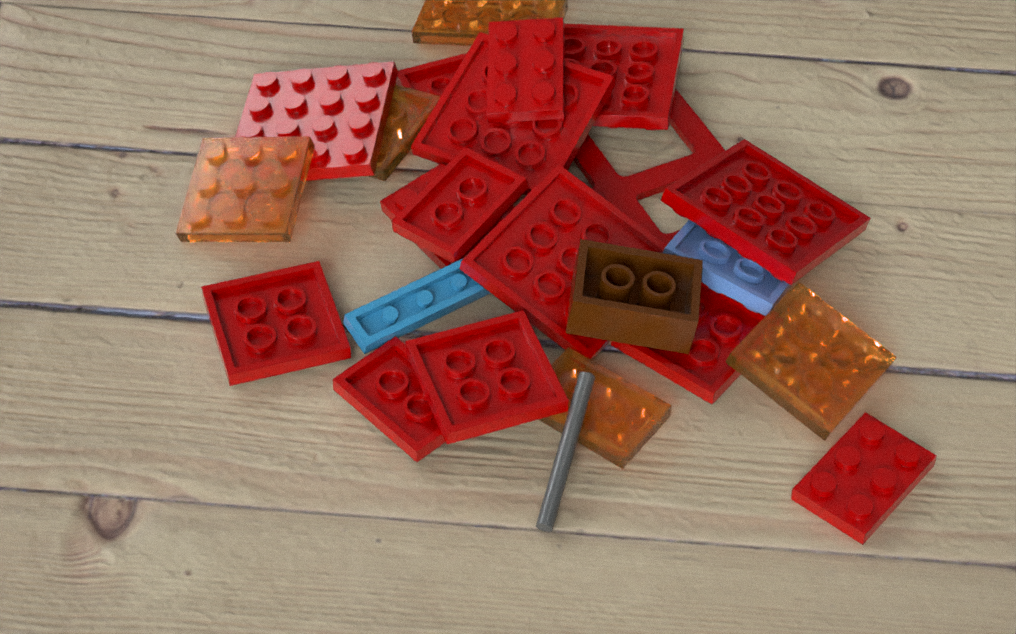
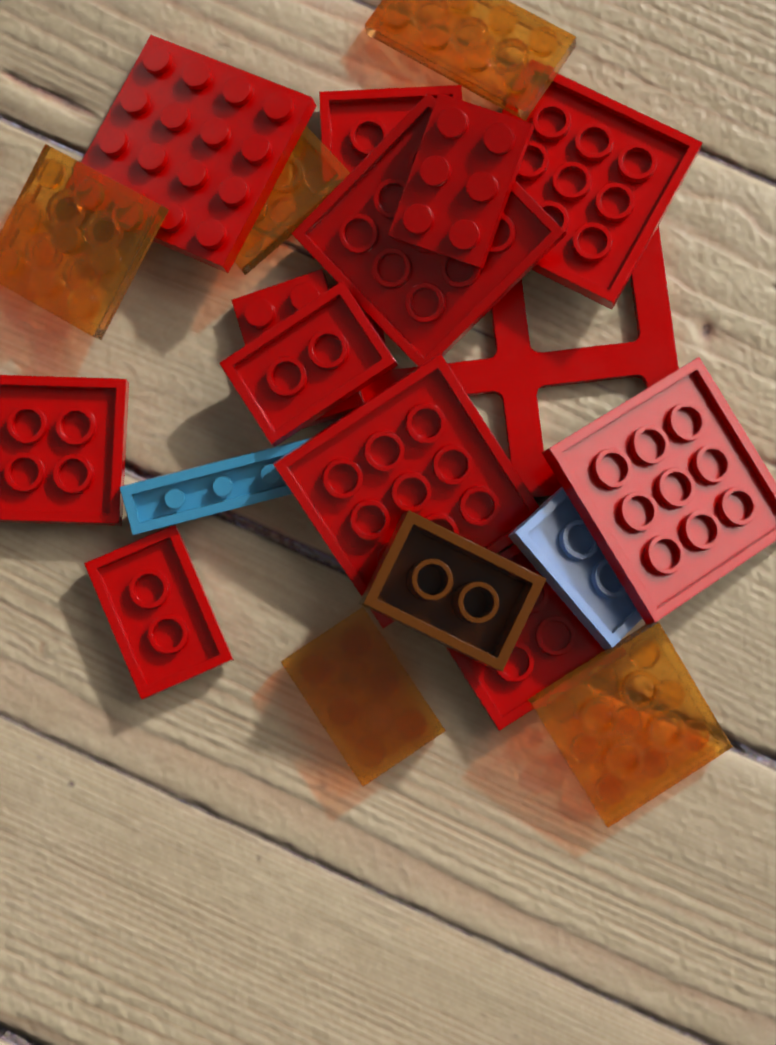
camera: 20 degrees right, 35 degrees up
(486, 377) = (247, 632): red plate -> none
(565, 452) = (303, 755): dark grey bar -> none
(863, 478) = (623, 889): red plate -> none

